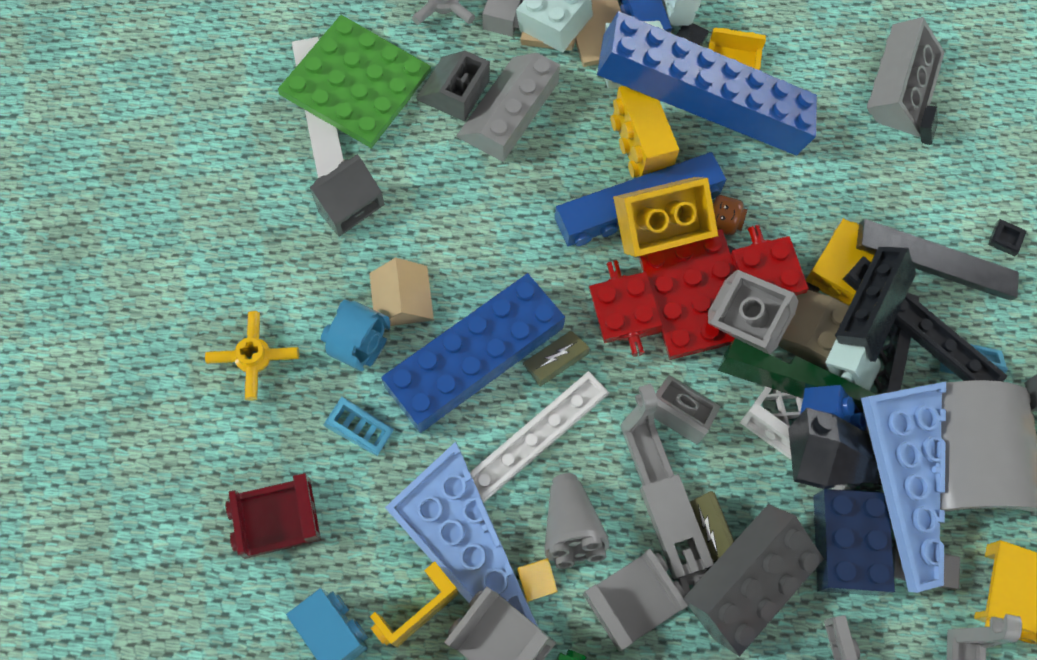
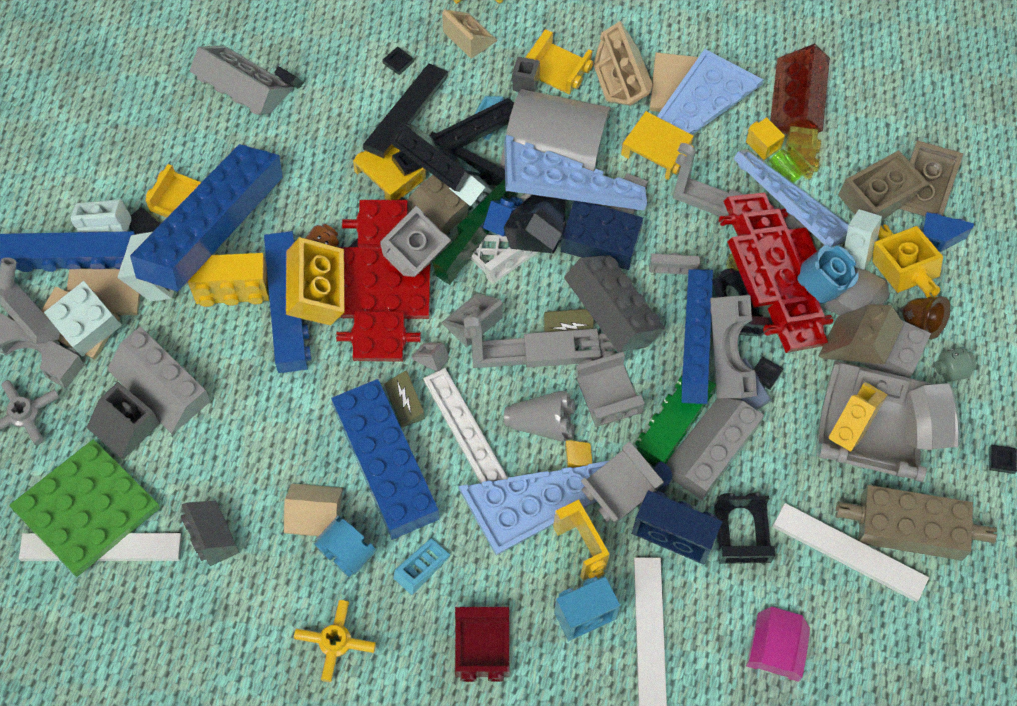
camera: 75 degrees left, 5 degrees down
(620, 373) = (431, 355): none -> light grey slope

